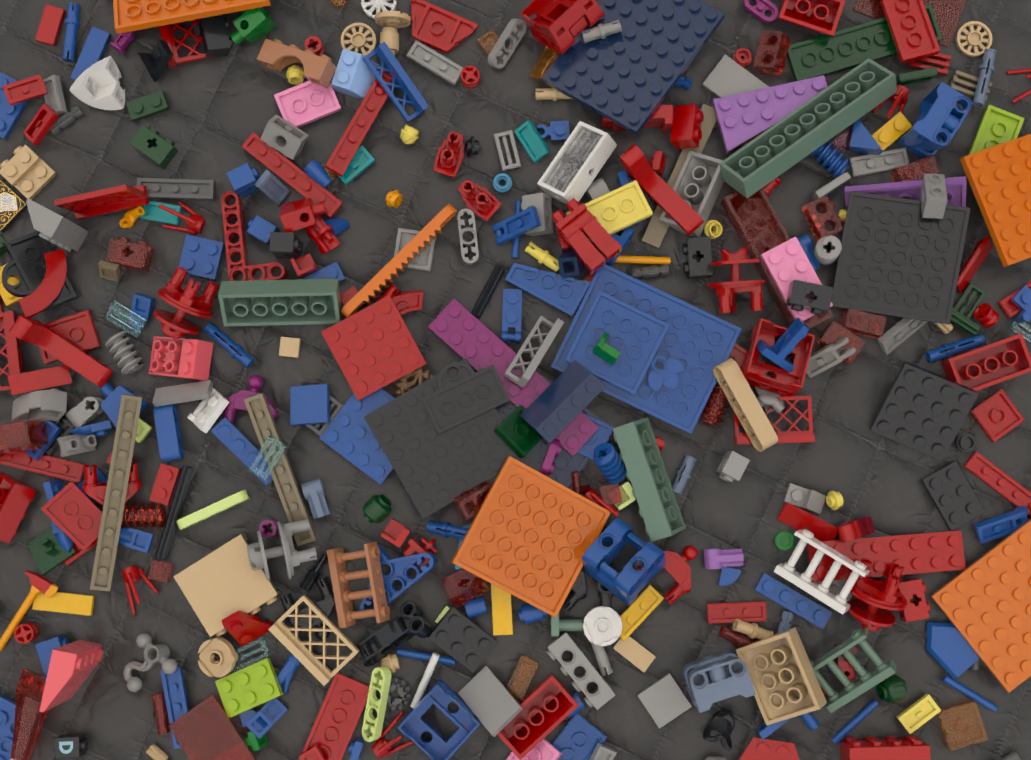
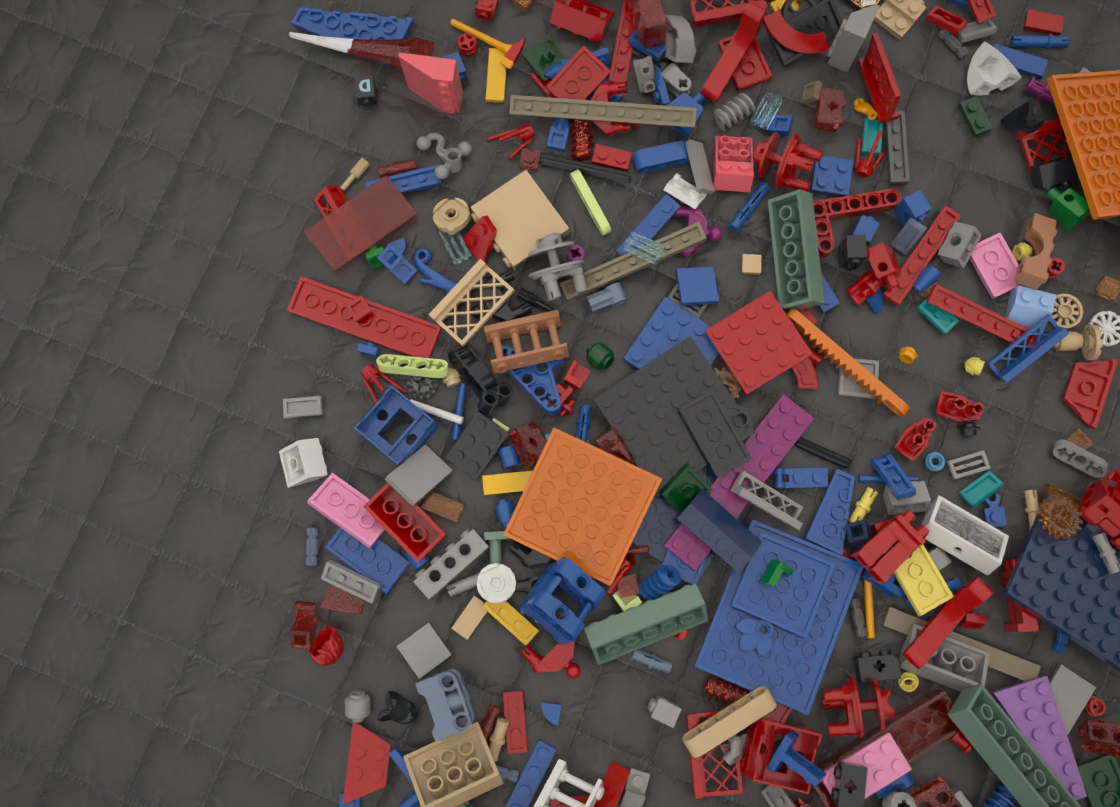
camera: 90 degrees right, 5 degrees down
(39, 379) = (703, 37): red tile -> none
(142, 430) = (662, 132): yellowish green plate -> none
(146, 138) = (941, 115): dark green brick -> none
(249, 688) = (423, 246): lime plate -> none
(304, 265) = (833, 272): red panel -> none
(435, 62) = (1050, 388): light grey tile -> none
(461, 223) = (889, 422): light grey beam -> none
(470, 72) = (1045, 423): red wheel -> none
(548, 465) = (668, 524): magenta plate -> none
(565, 71) = (1060, 517): none -> clear orange gear
(686, 126) = (1015, 648): red brick -> none
(716, 558) = (569, 702): medium lavender piece -> none
(784, 540) = (590, 770): green tile -> none

